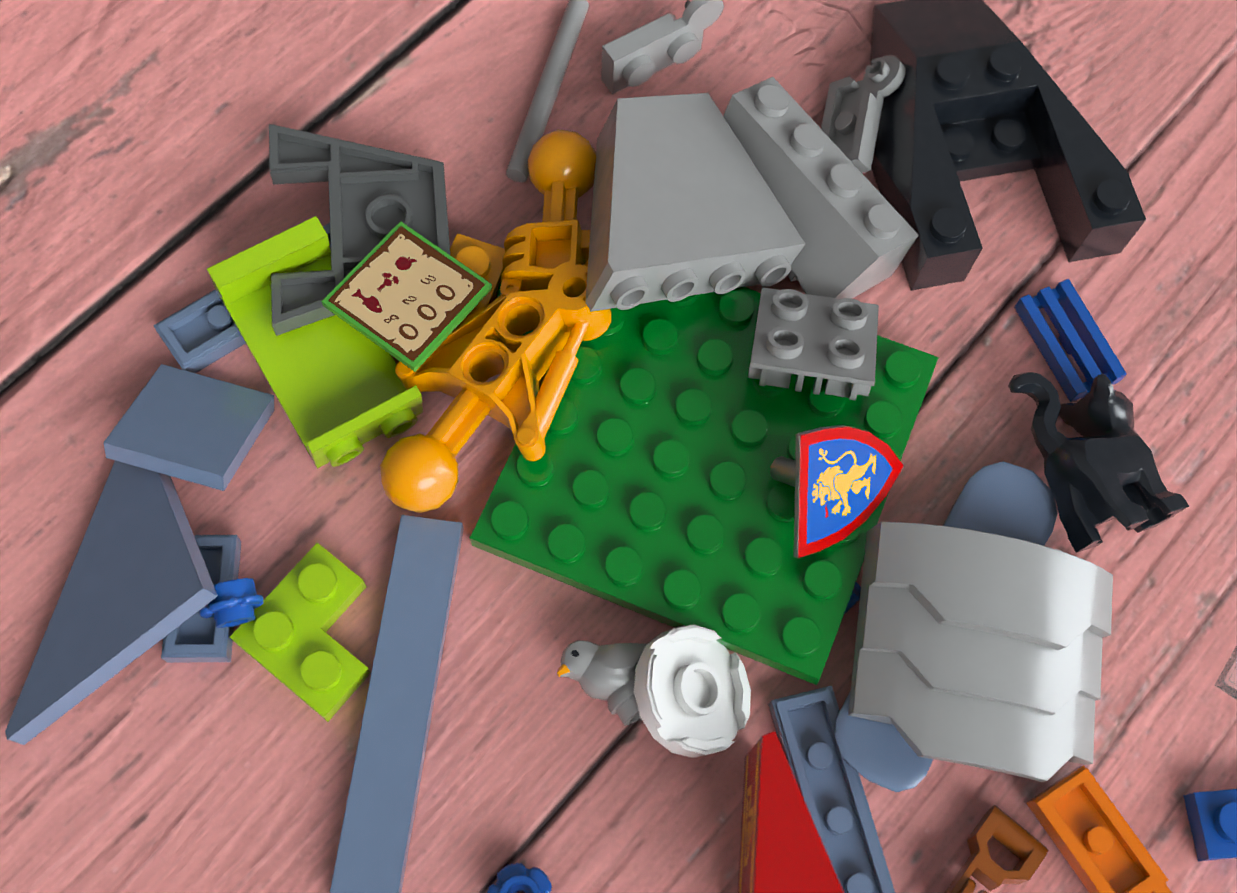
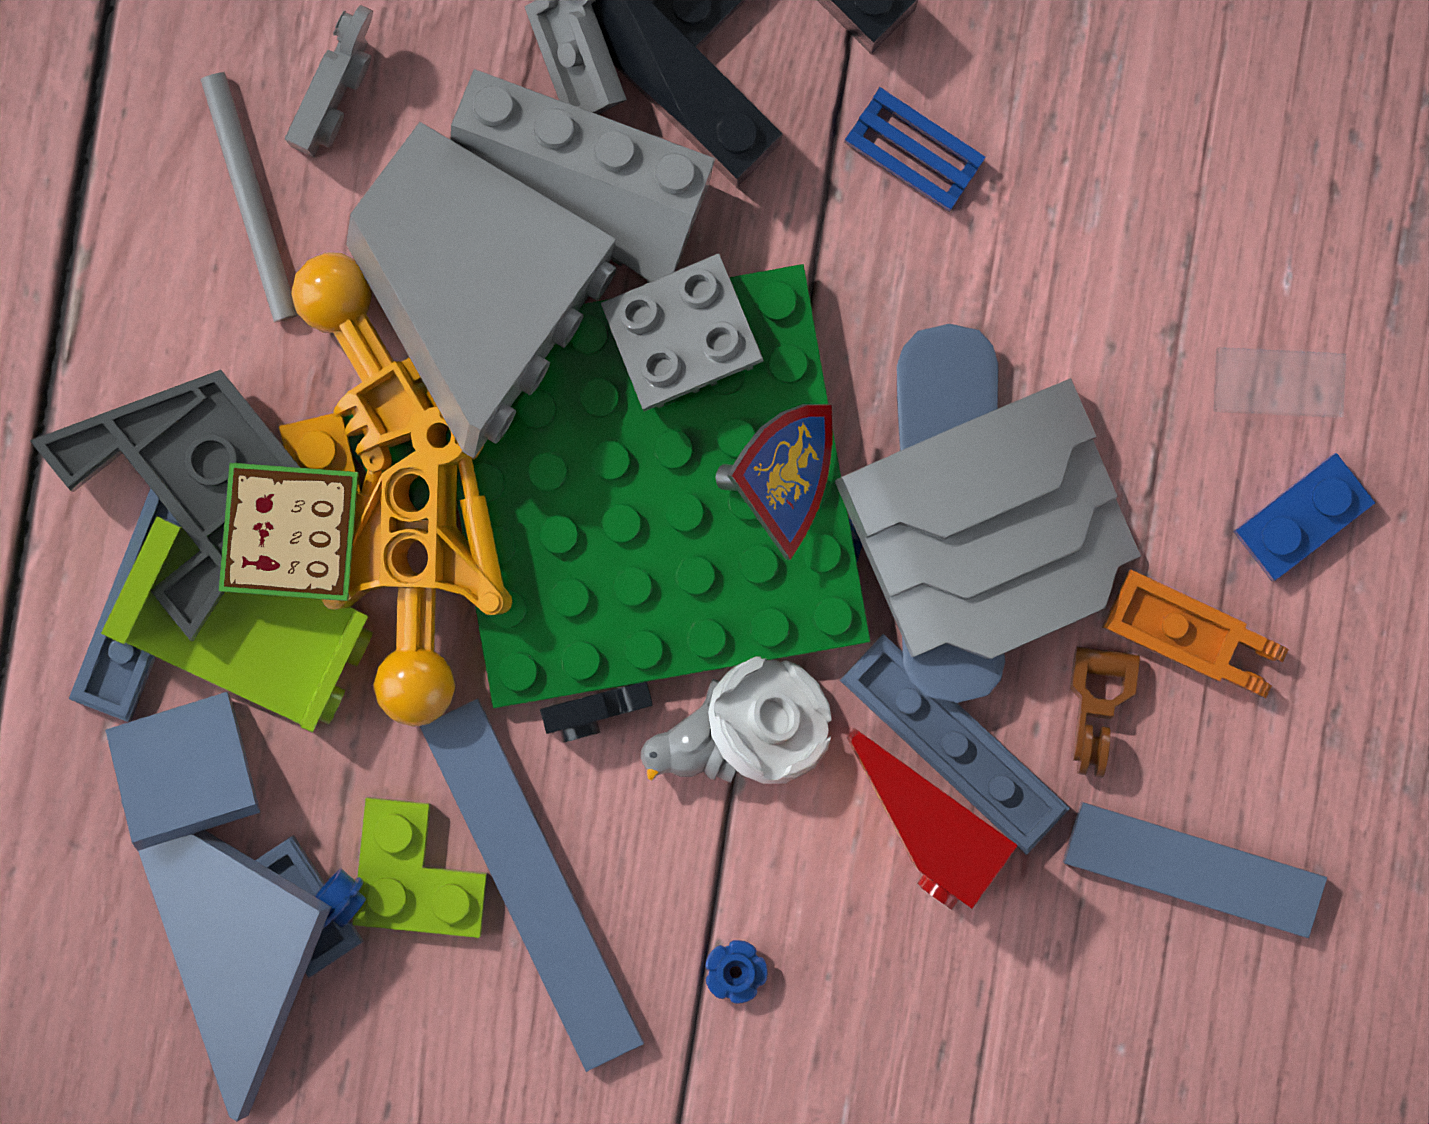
camera: 25 degrees left, 20 degrees up
(538, 586) = (581, 716): none -> black plate
(1103, 472) = (1000, 292): black animal -> none

